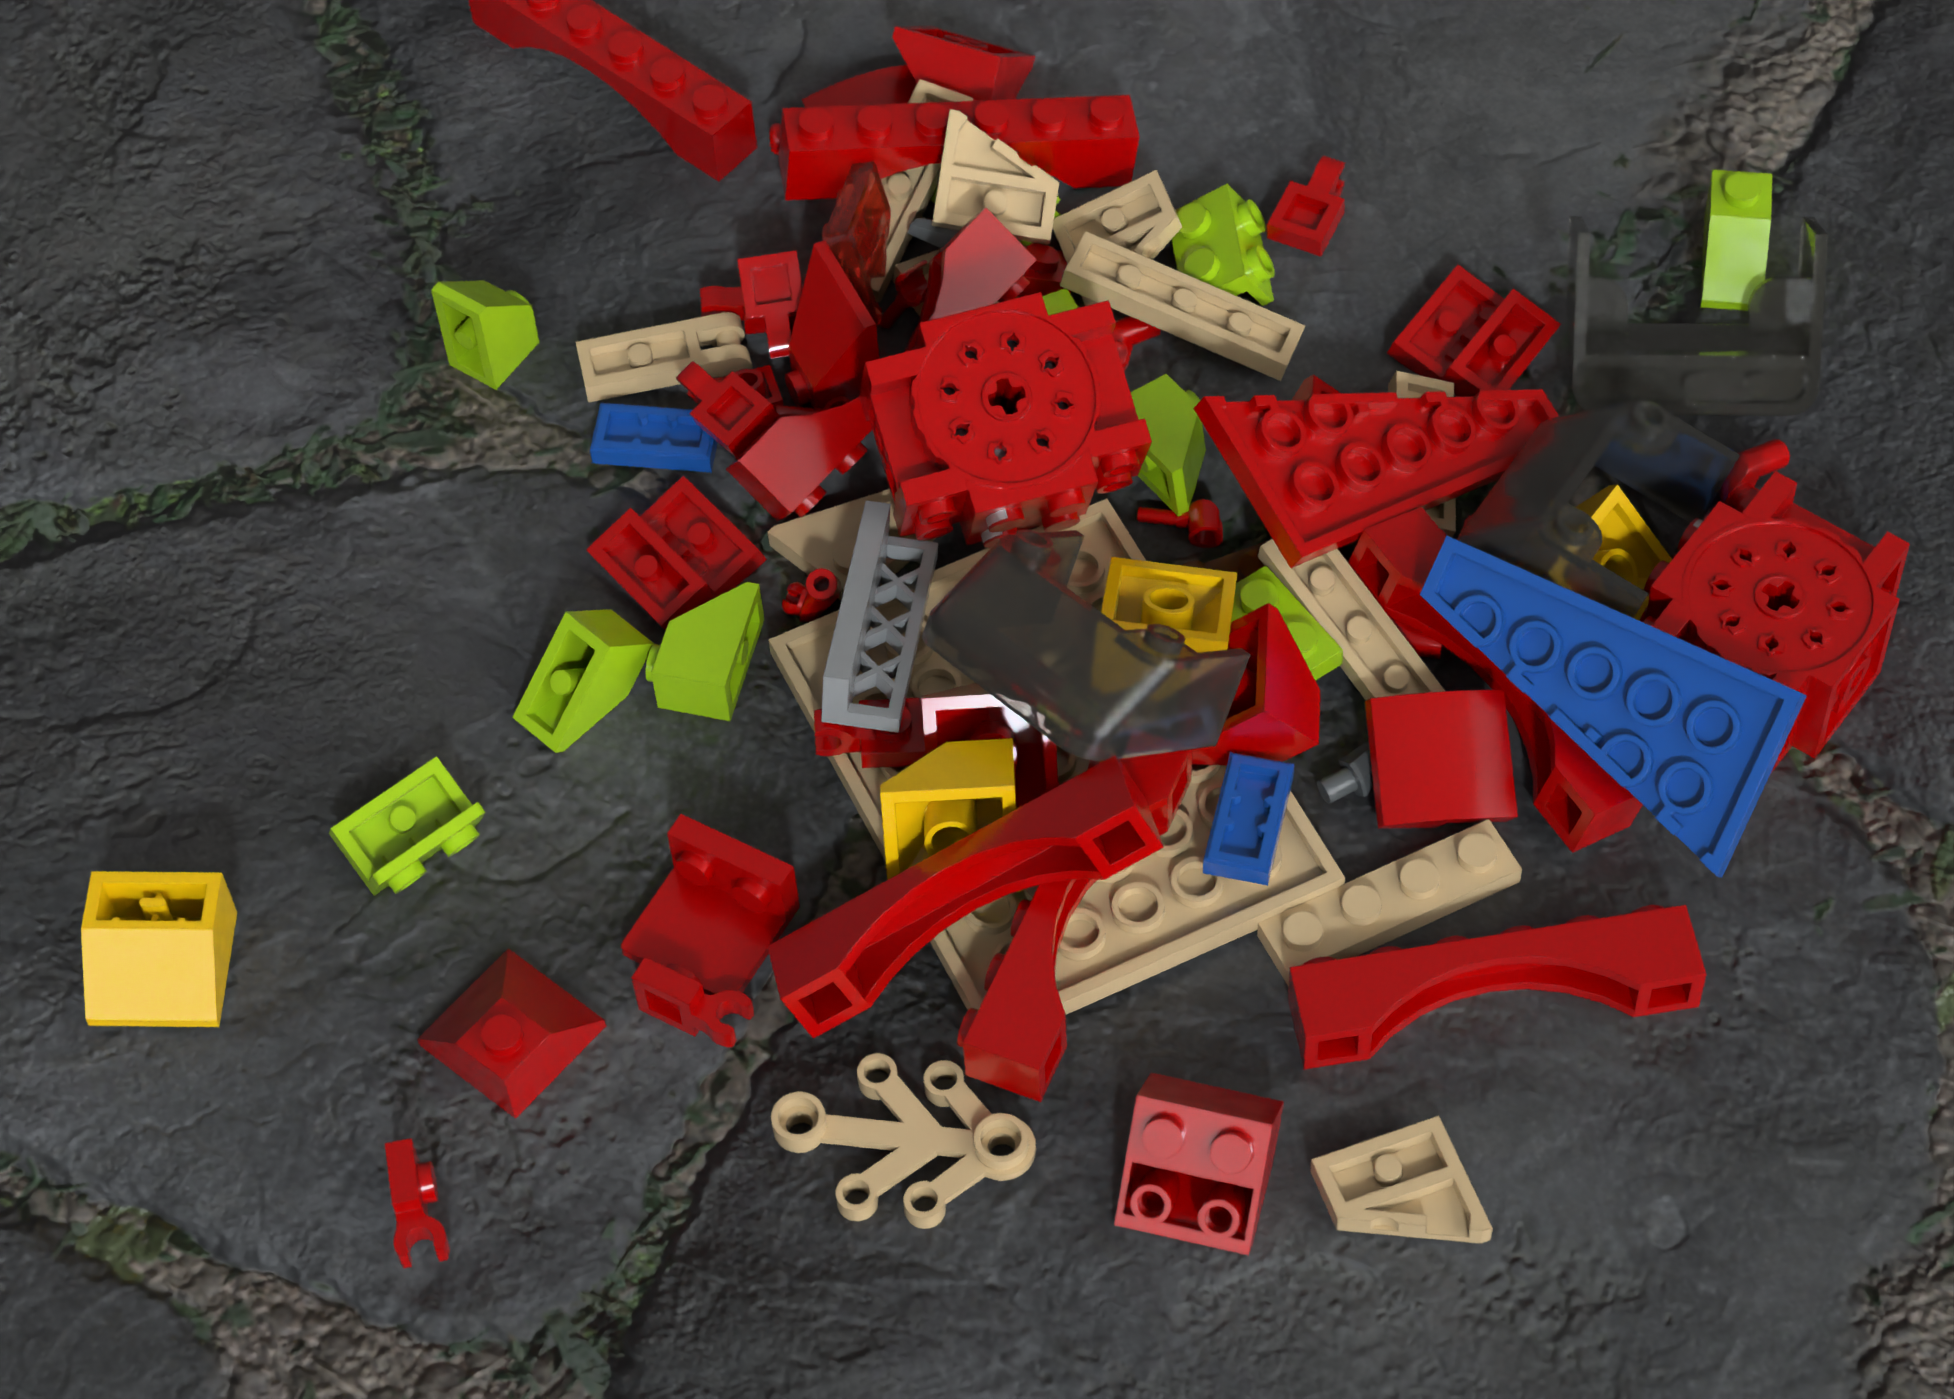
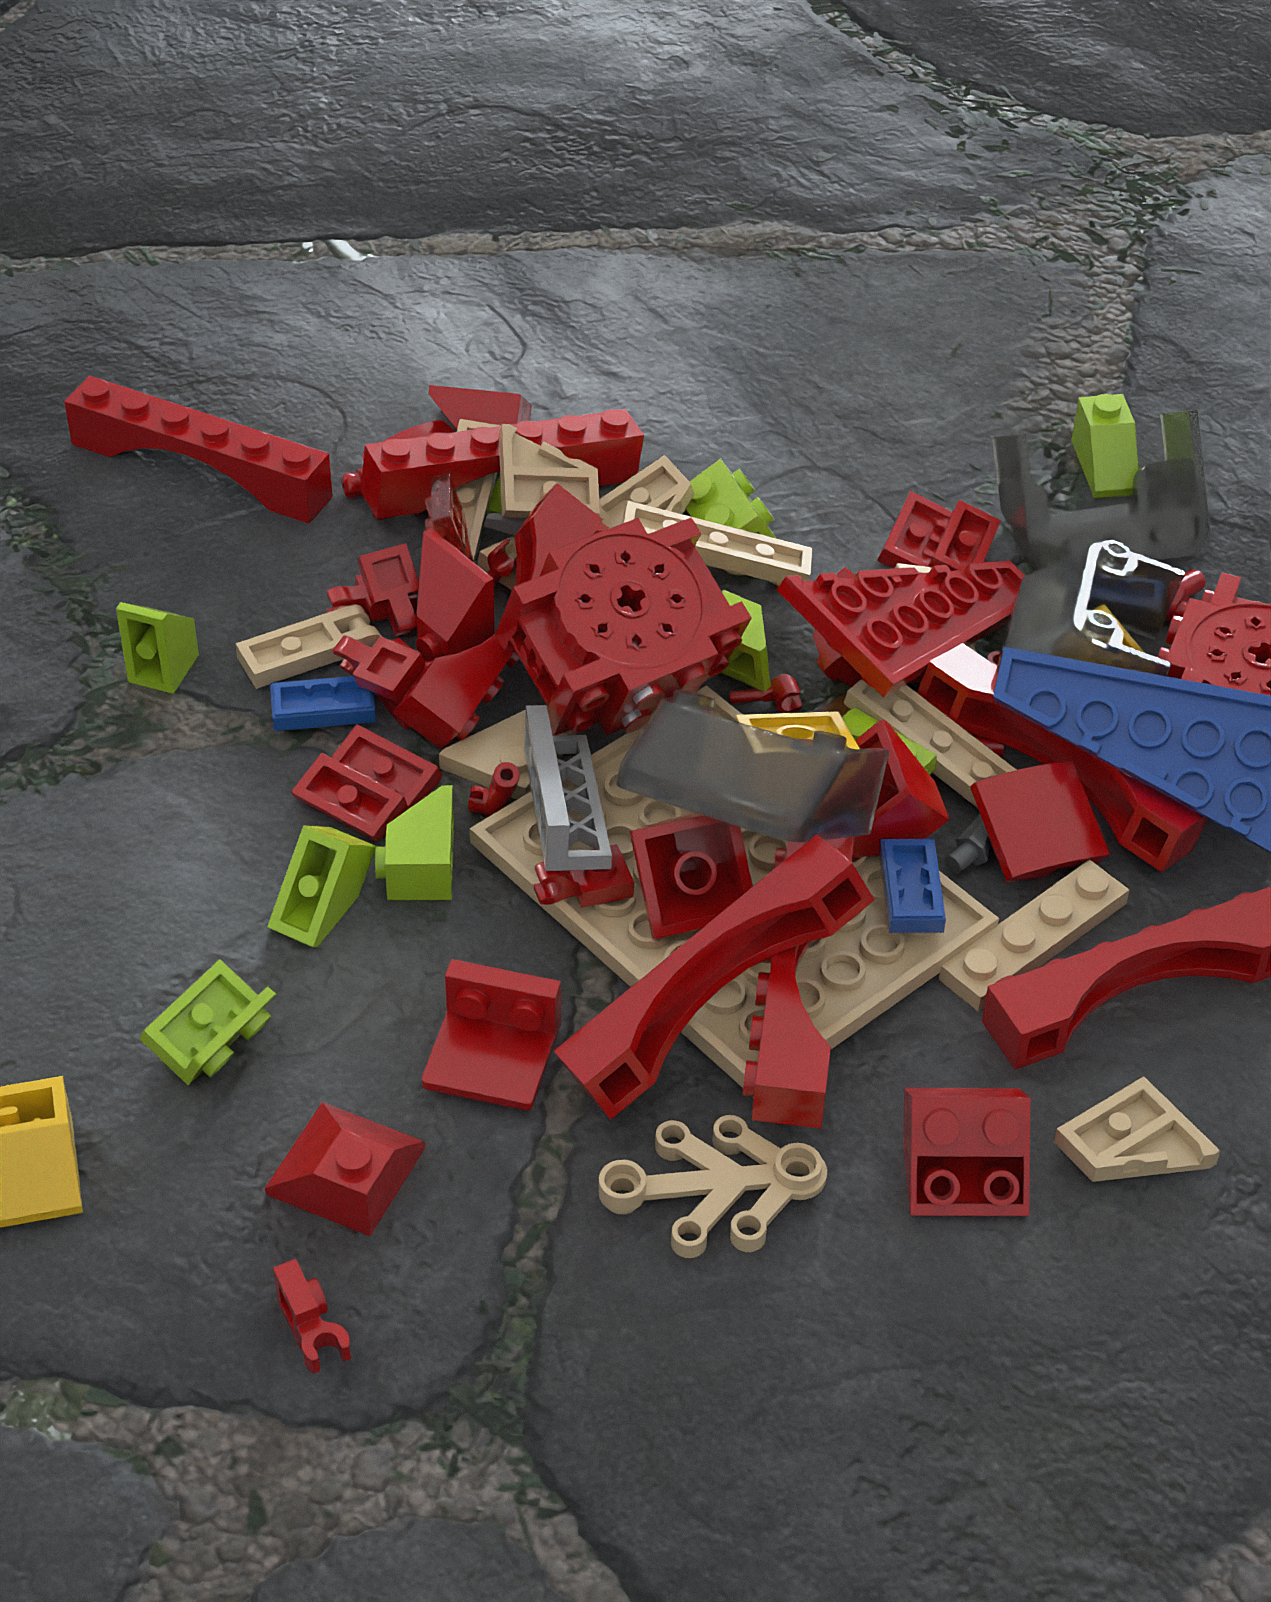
camera: 20 degrees left, 10 degrees down
(679, 1000) = (488, 1111): red plate -> none
(945, 799) = (676, 904): yellow slope -> none
(1310, 213) = (784, 475): red plate -> none

